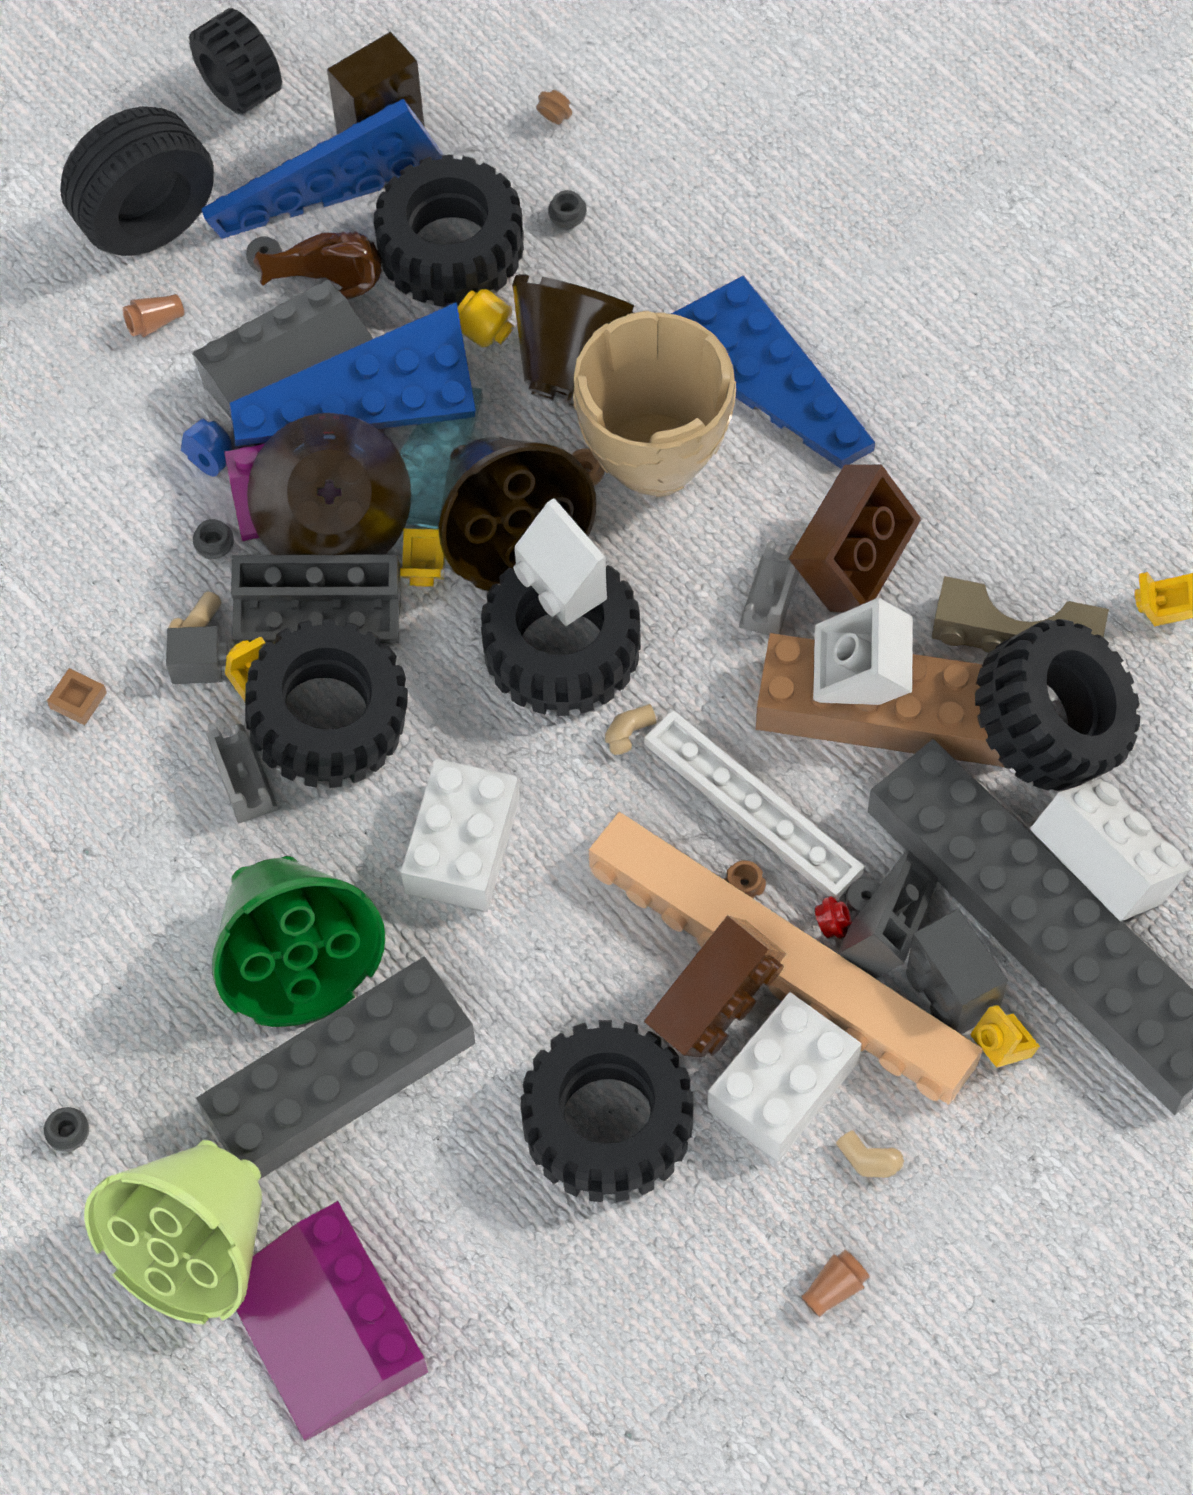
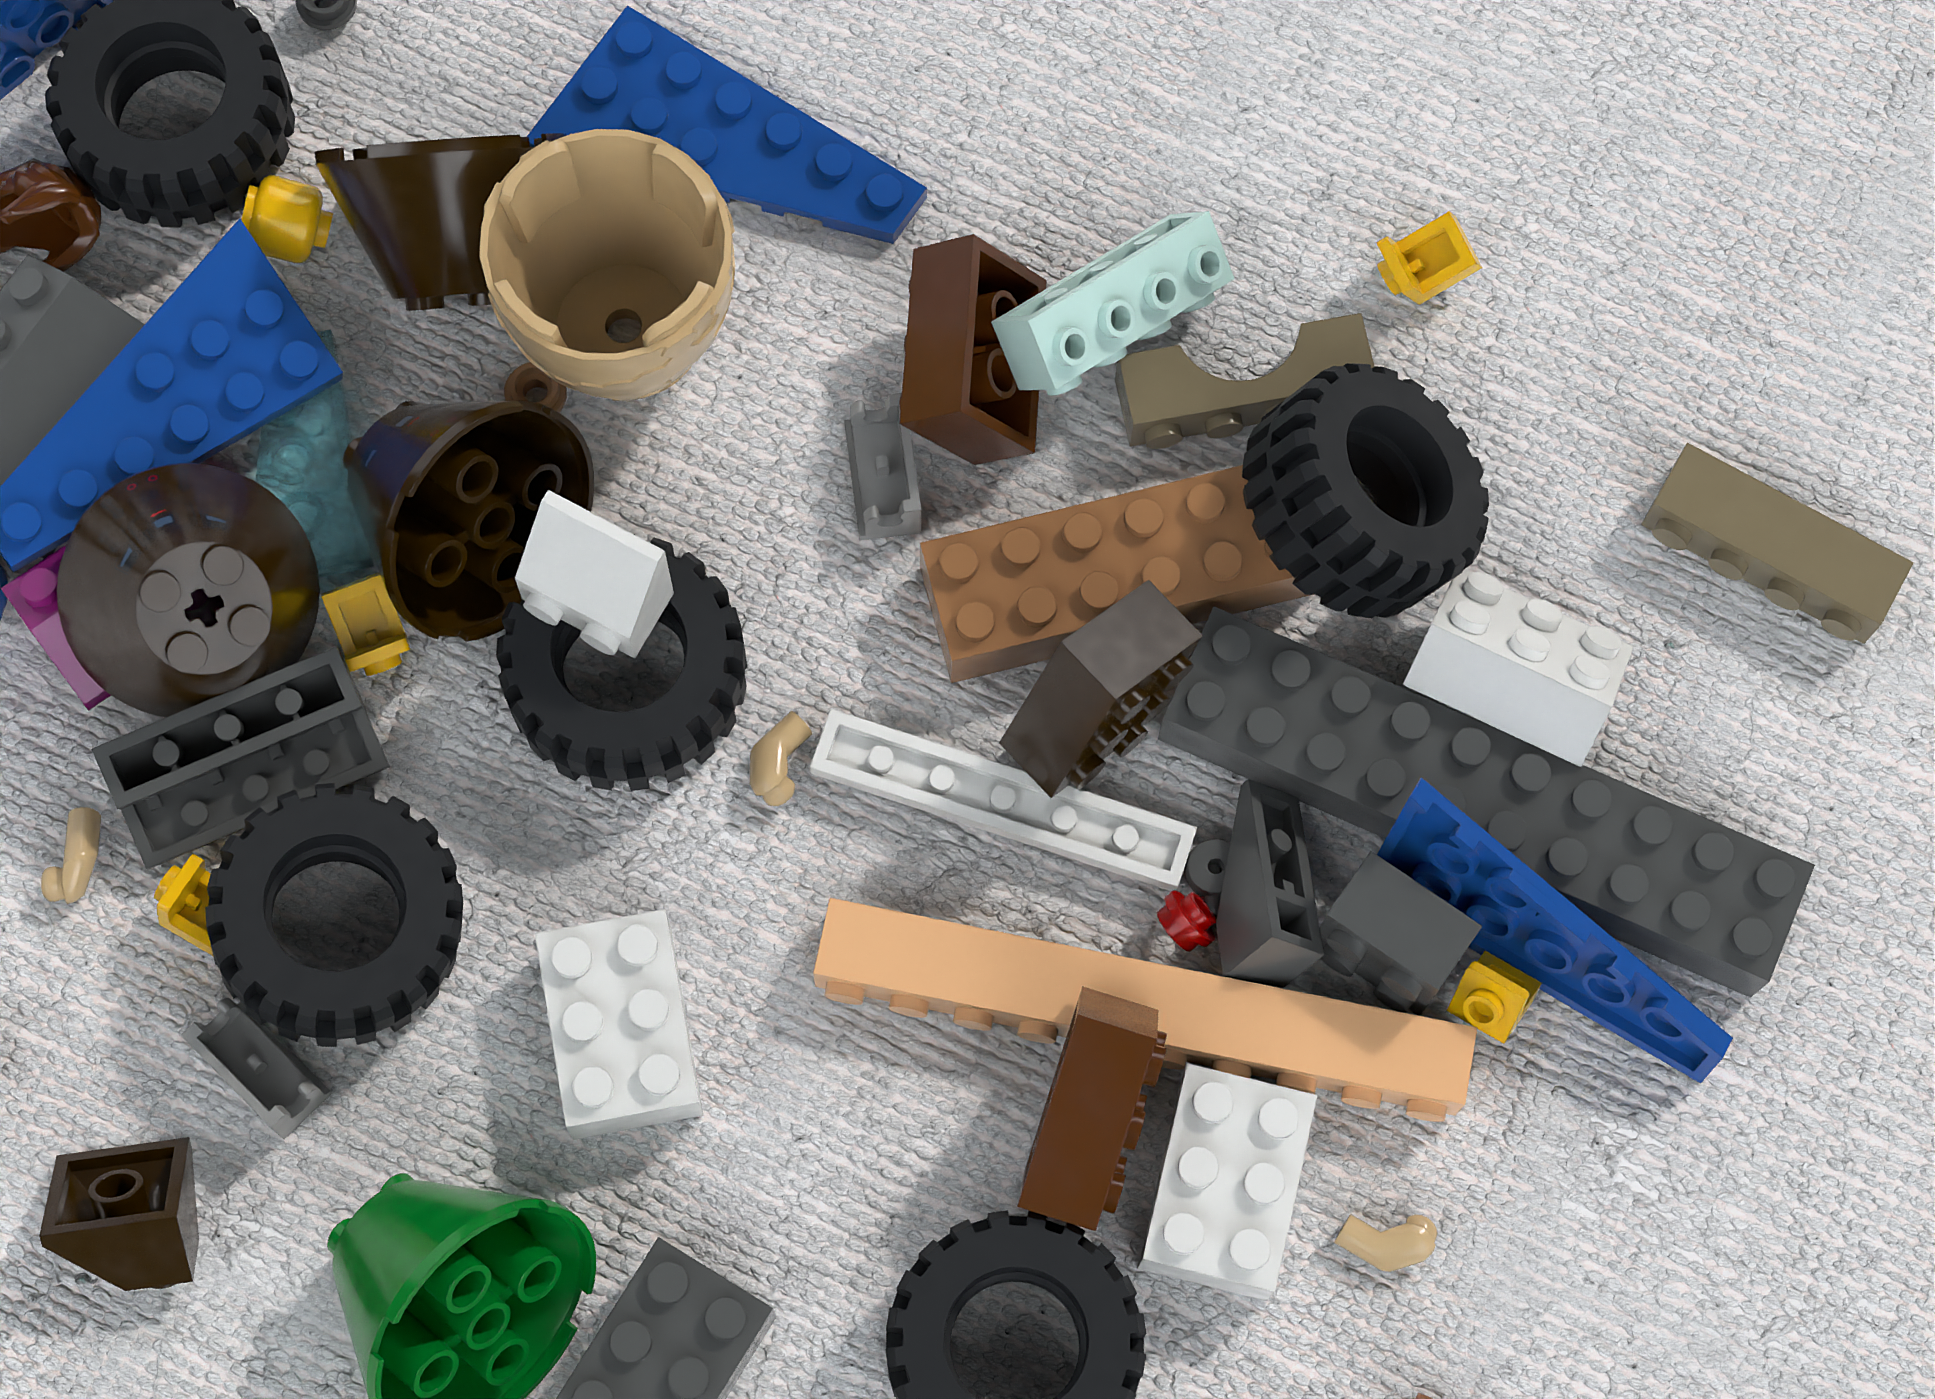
camera: 30 degrees left, 10 degrees up
(129, 822) = (126, 1213): none -> dark brown slope
(195, 655) = (103, 914): dark grey brick -> none
(211, 530) = (33, 708): dark grey plate -> none
(750, 872) = (1046, 901): medium nougat plate -> none
(836, 752) = (1101, 690): none -> dark brown brick
(864, 655) = (1073, 530): white slope -> none
(954, 542) = (1113, 302): none -> light aqua brick
(1051, 1012) = (1547, 934): none -> blue wing

